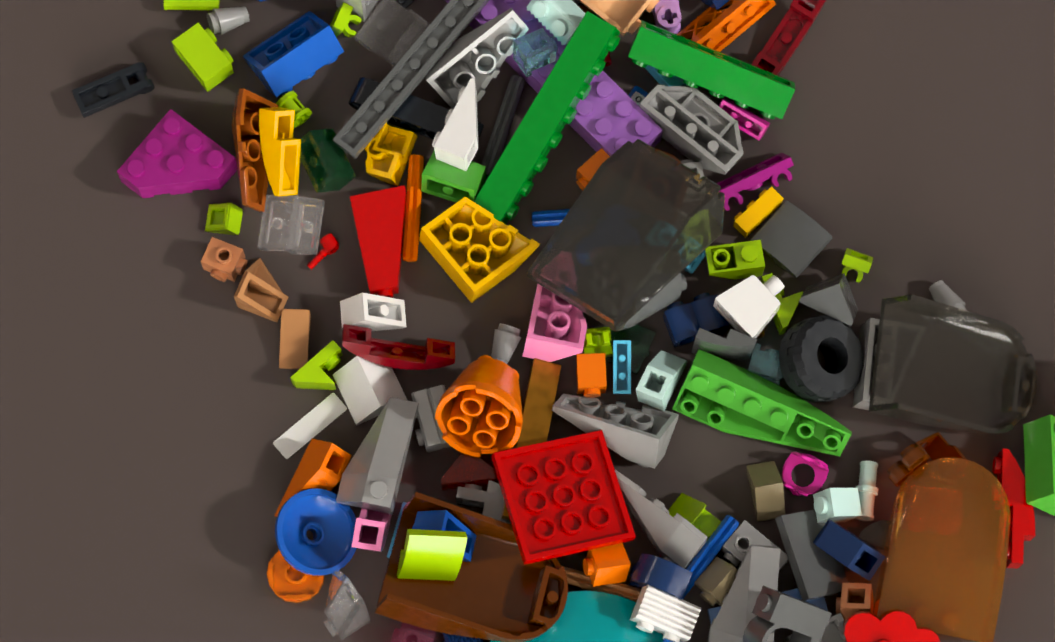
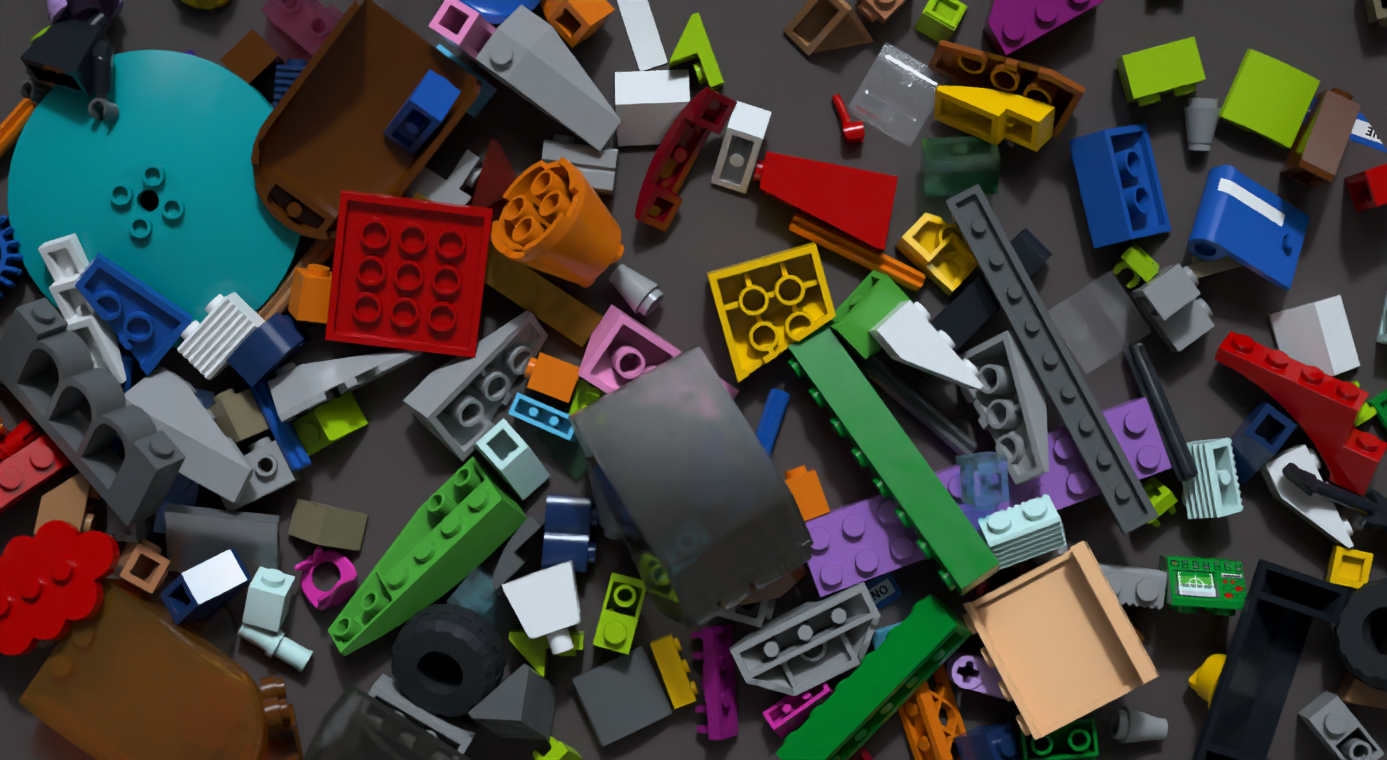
camera: 115 degrees right, 15 degrees up
(291, 101) = (1047, 157): lime bush -> none
(294, 338) = (750, 41): medium nougat slope -> none
(432, 555) = (396, 84): lime slope -> none

